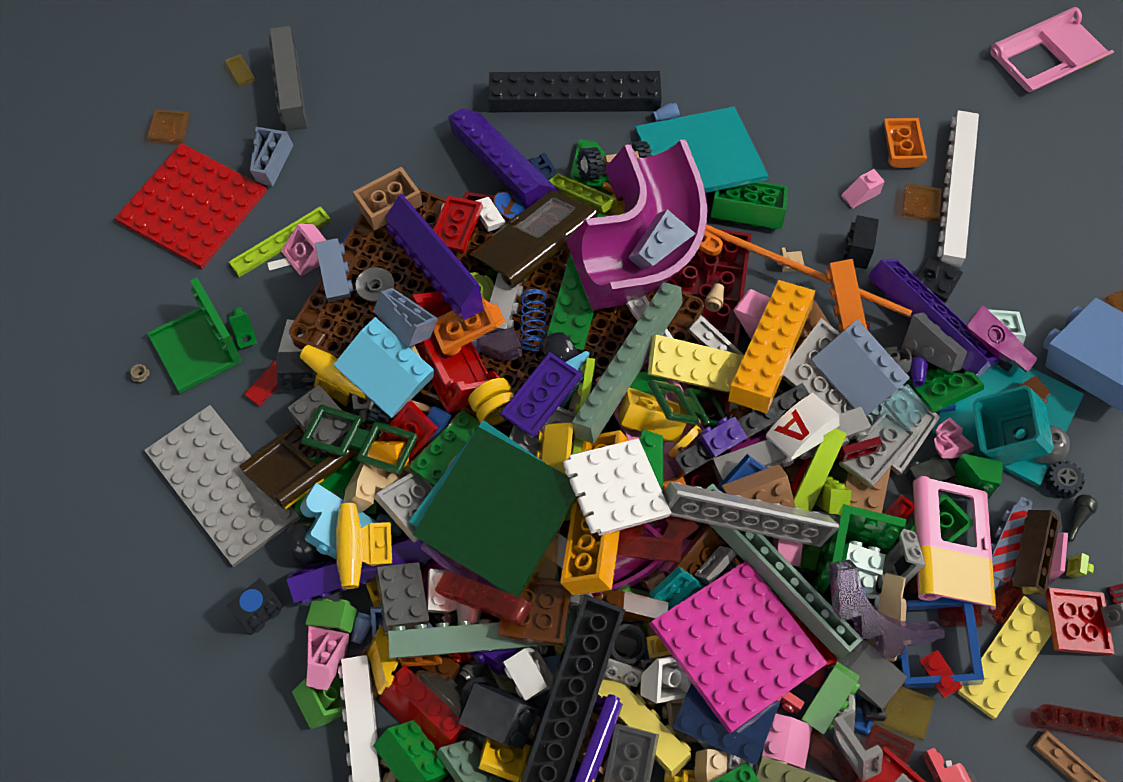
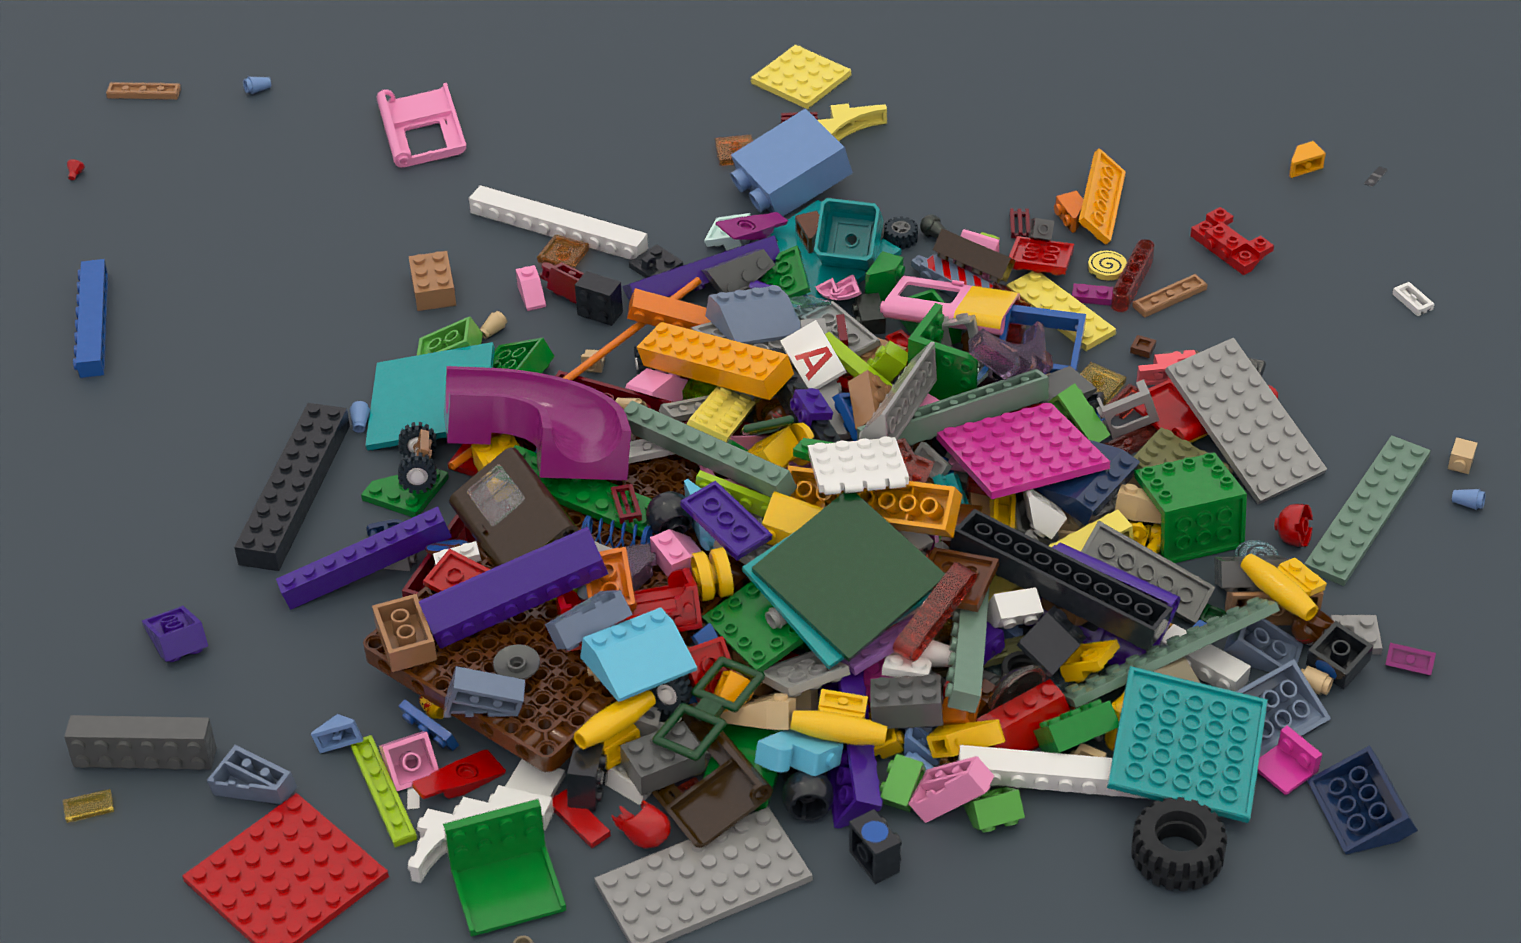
camera: 75 degrees left, 20 degrees down
(169, 126) = (148, 887): clear orange plate -> none
(240, 290) = (432, 837): none -> white arch
(258, 428) = (646, 828): none -> red helmet
(290, 281) = (460, 776): none -> red piece
(323, 194) = (336, 733): none -> medium blue slope
(404, 66) = (176, 633): none -> dark purple slope
(518, 367) = (673, 550): none -> bright pink slope
(578, 304) = (628, 516): none -> dark red tile
(583, 193) = (442, 494): lime tile -> none
(660, 239) = (571, 402): wedge -> none
(774, 150) = (457, 335): none -> bright green slope
(808, 174) = (493, 324): none -> tan cone
(845, 115) = (432, 280): none -> medium nougat brick
(880, 208) = (561, 279): none -> dark red brick
(904, 142) = (487, 245): orange slope -> none
(936, 666) = (1063, 348): red plate -> none
(977, 750) = (1143, 346): none -> reddish brown plate
(1045, 684) = (1092, 294): none -> magenta plate
(1098, 694) = (1106, 265): none -> light yellow tile

